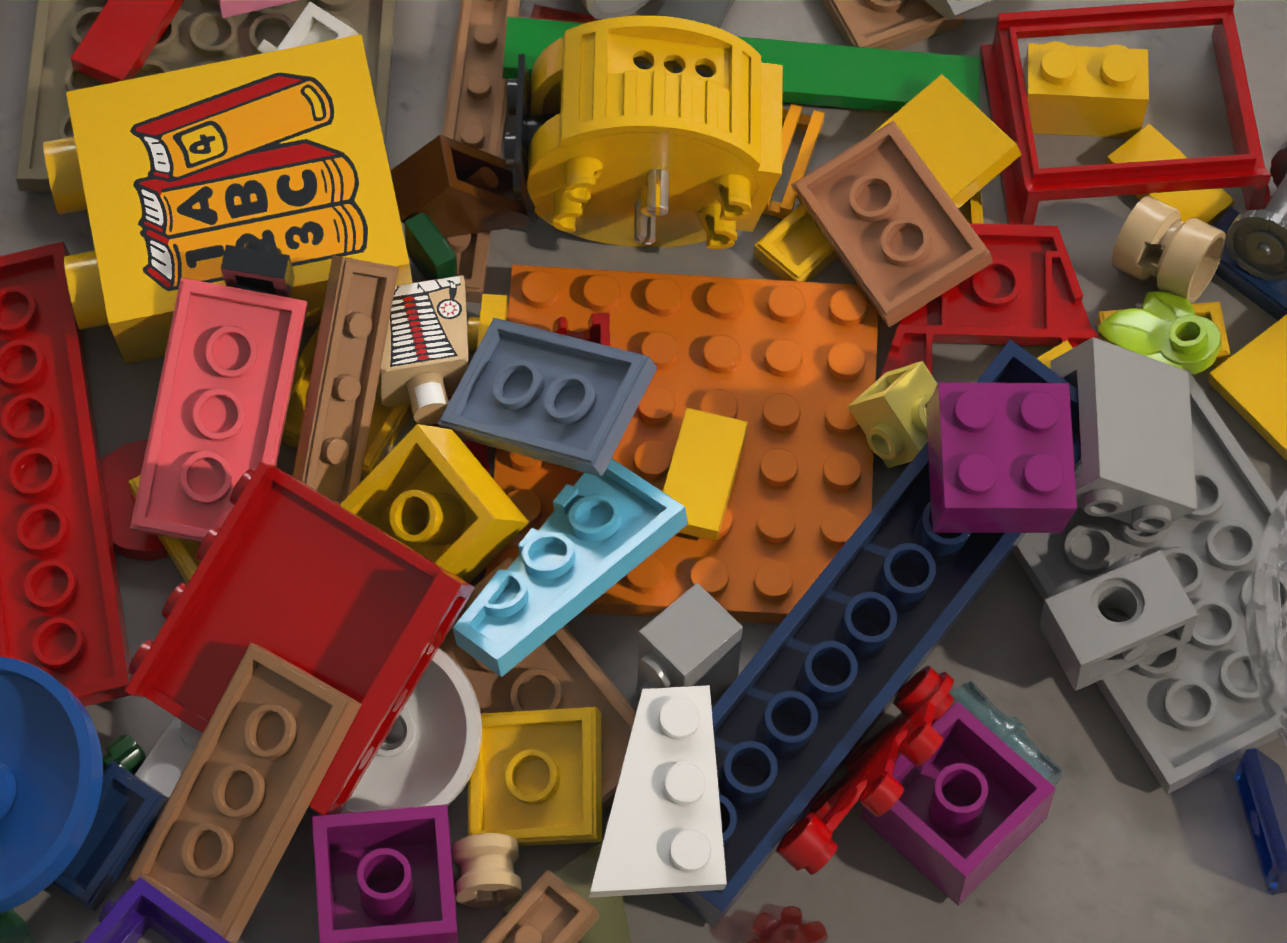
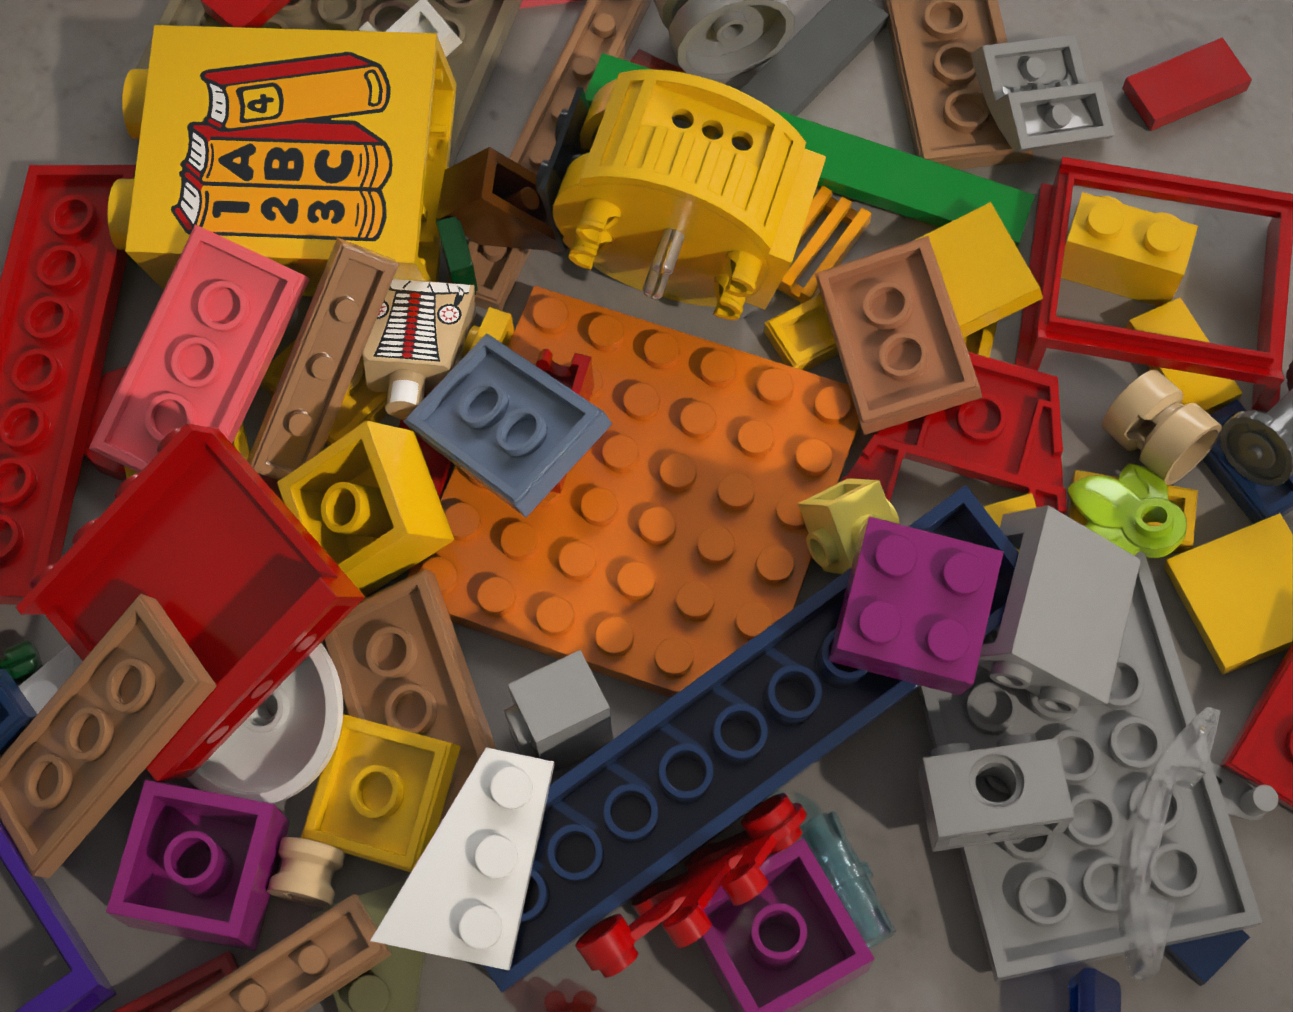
camera: 20 degrees right, 5 degrees up
(258, 269) = (265, 233): black plate -> none
(579, 553) = (471, 593): medium azure wing -> none
(705, 469) = (636, 534): yellow tile -> none

